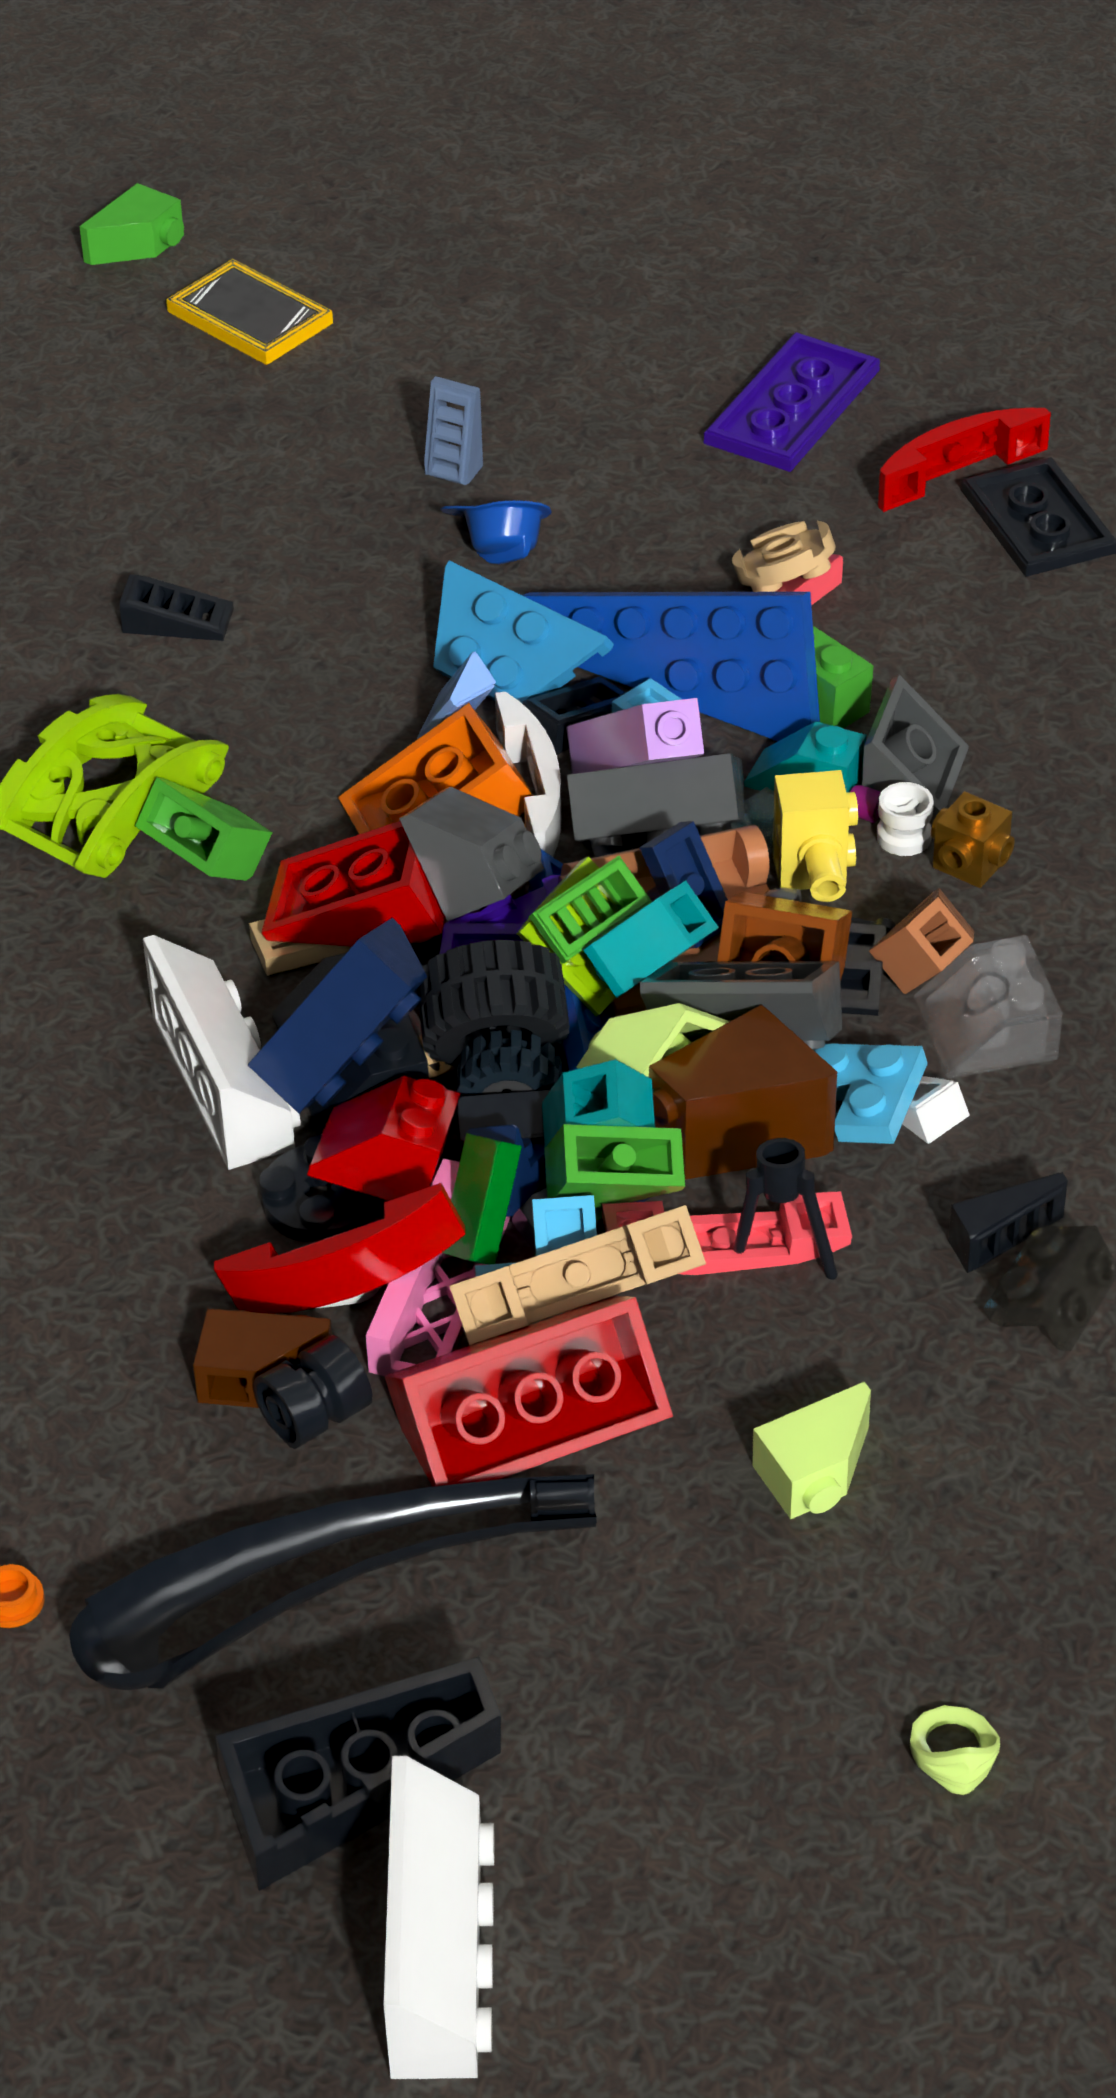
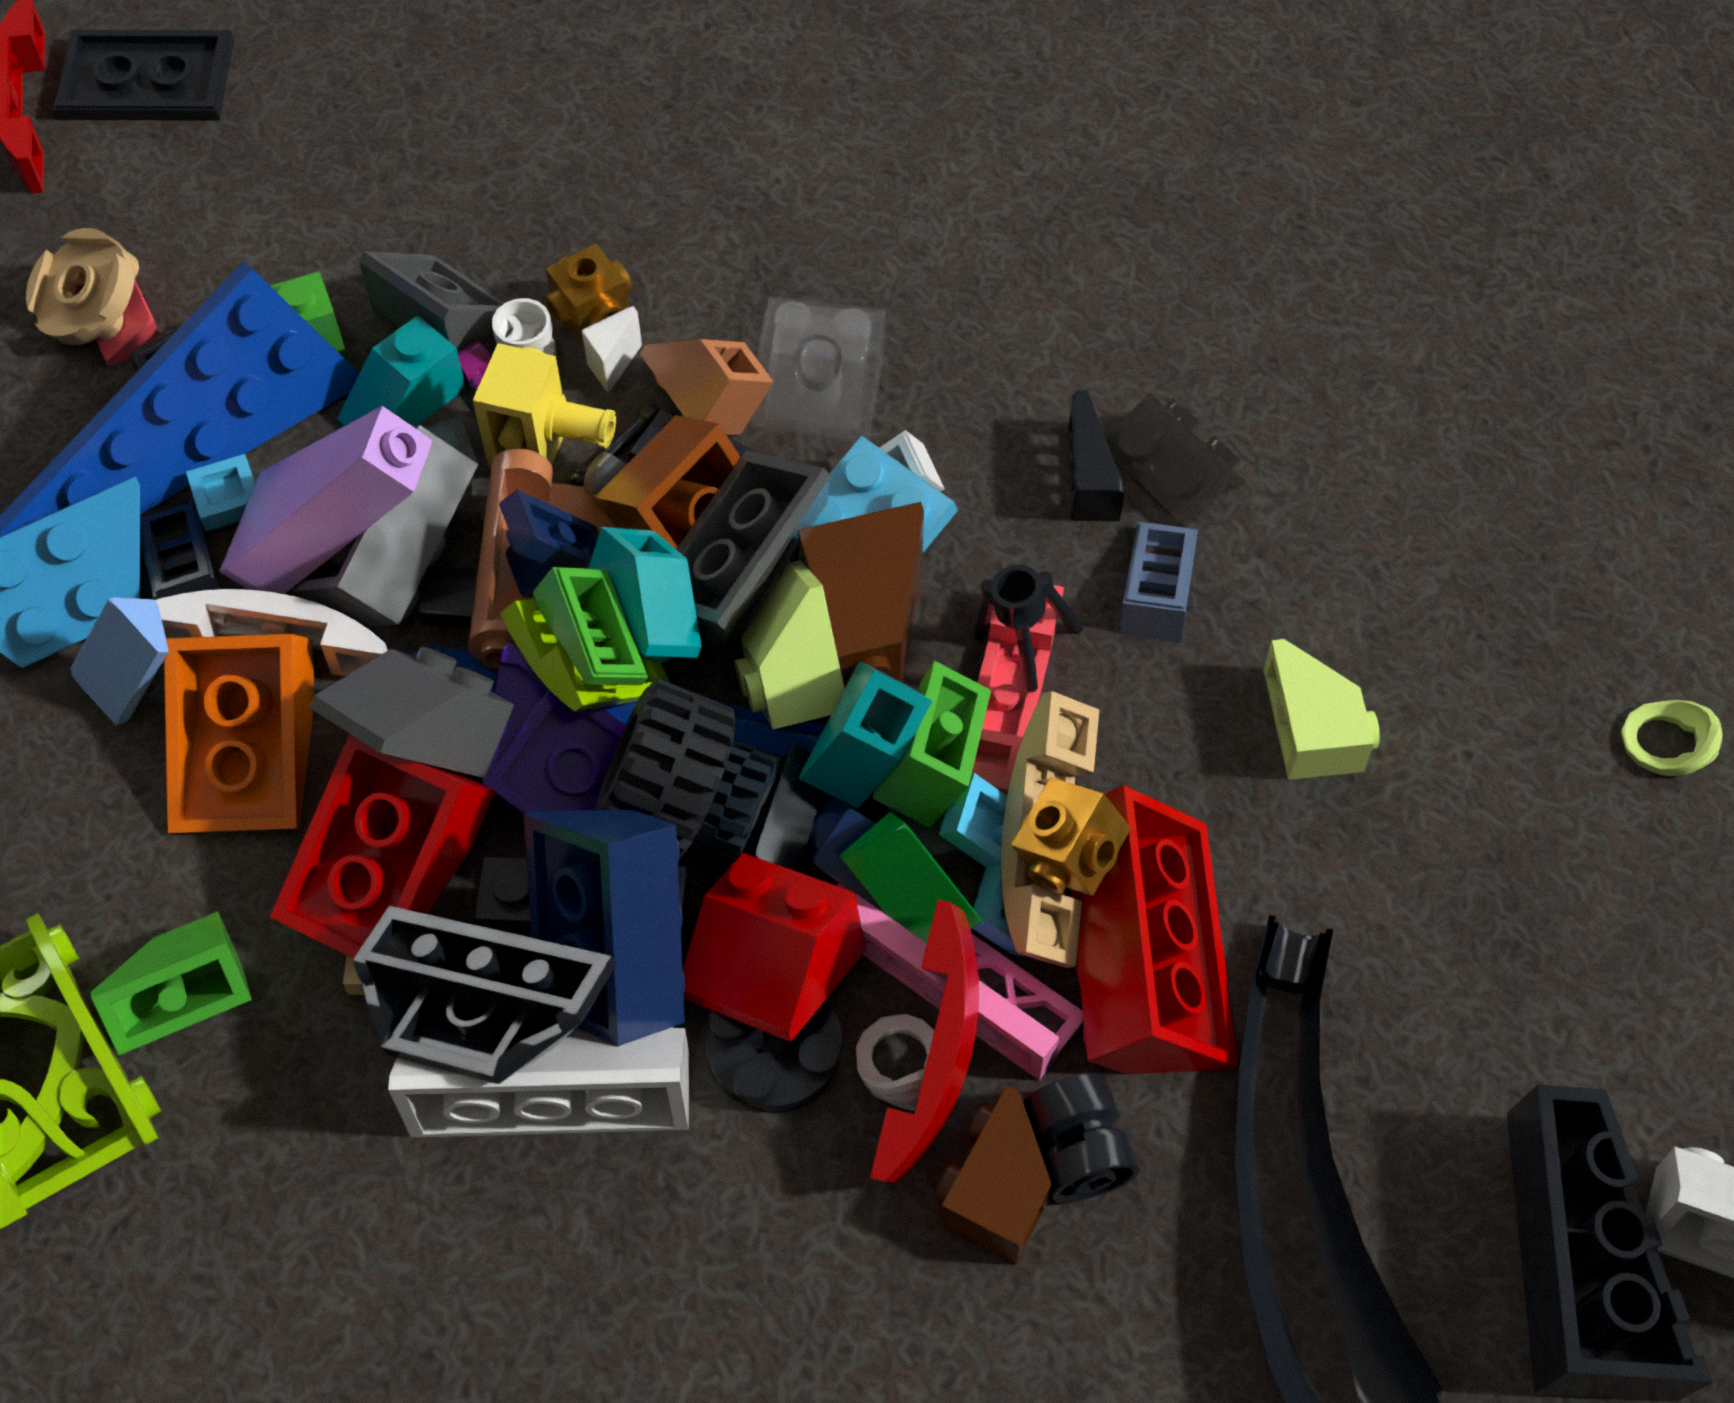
camera: 70 degrees left, 15 degrees up
(241, 962) = (473, 993): none -> black wedge
(558, 1270) = (1070, 837): none -> pearl gold brick
(878, 1326) = (1155, 614): none -> sand blue slope
(930, 868) = (612, 345): none -> white slope

